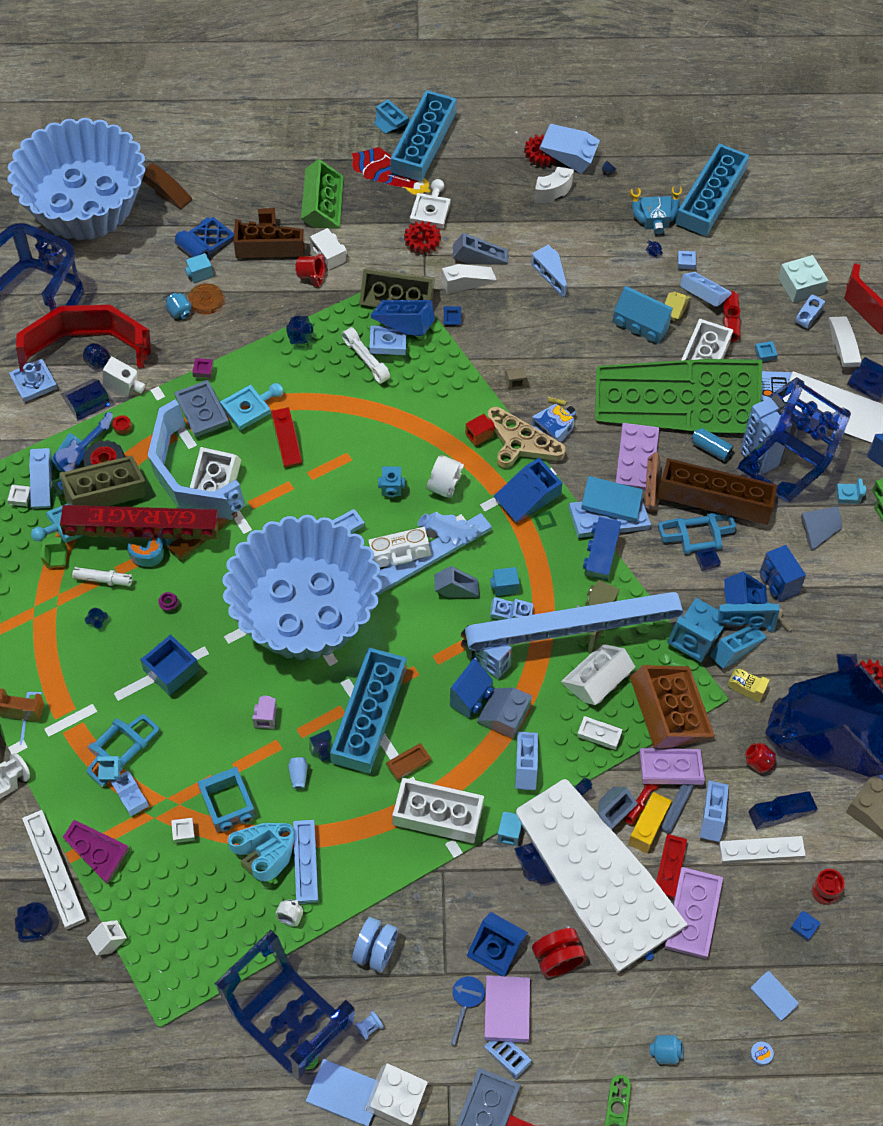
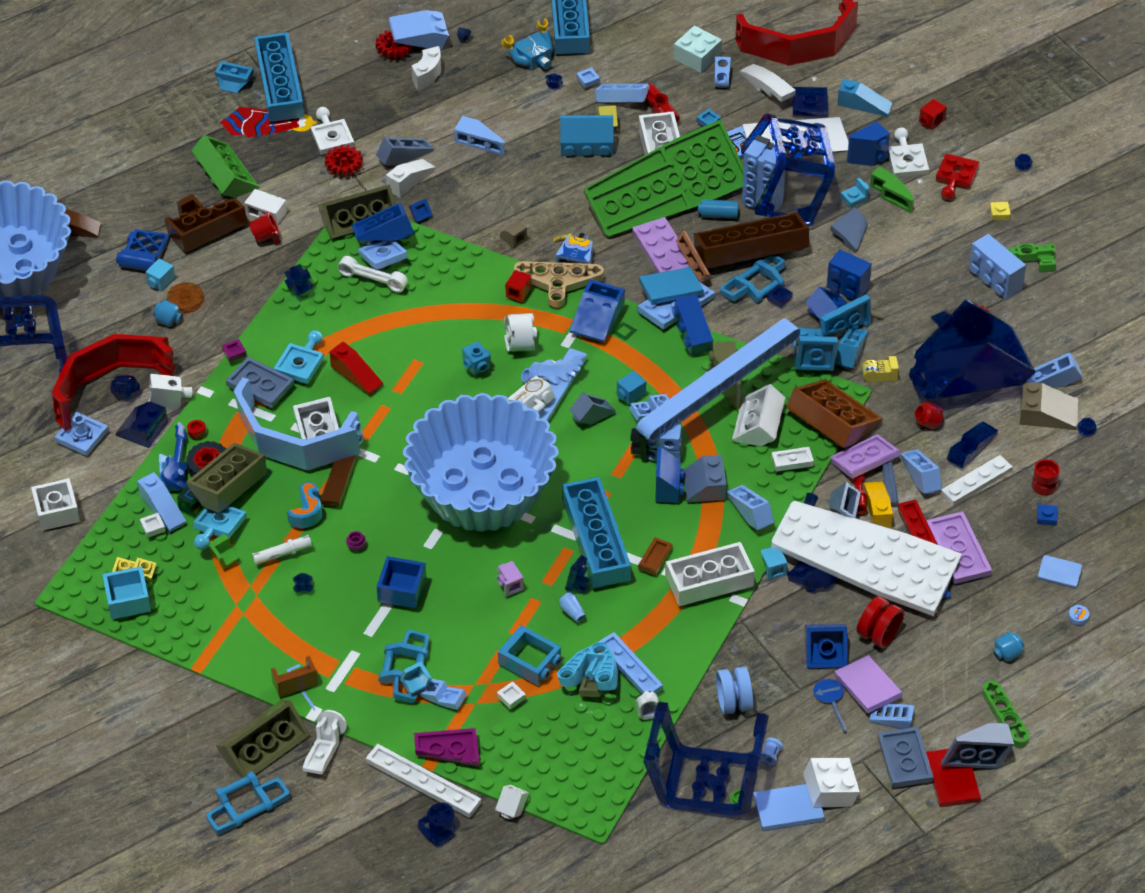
camera: 30 degrees left, 10 degrees down
(139, 522) = (287, 487): dark red brick -> none

